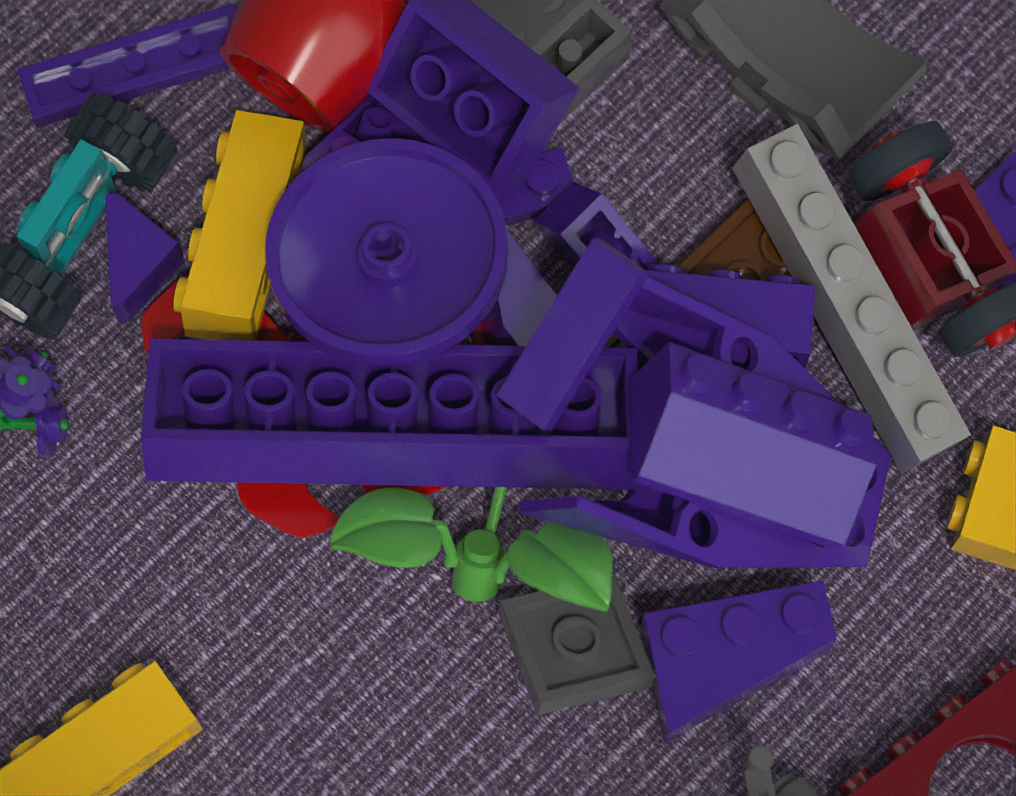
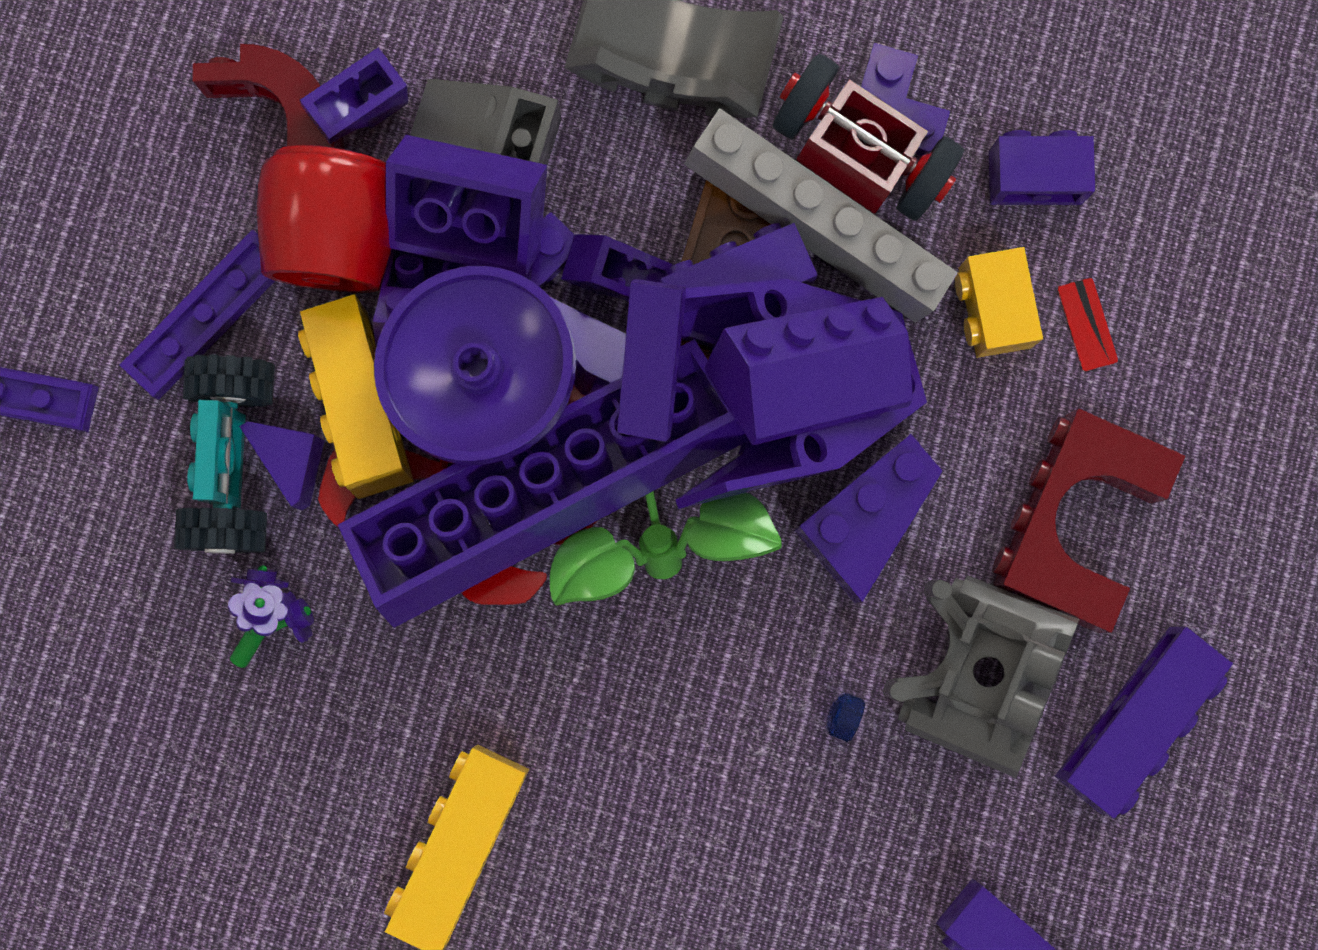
camera: 30 degrees left, 10 degrees up
(574, 651) = (764, 586): dark grey hinge -> none

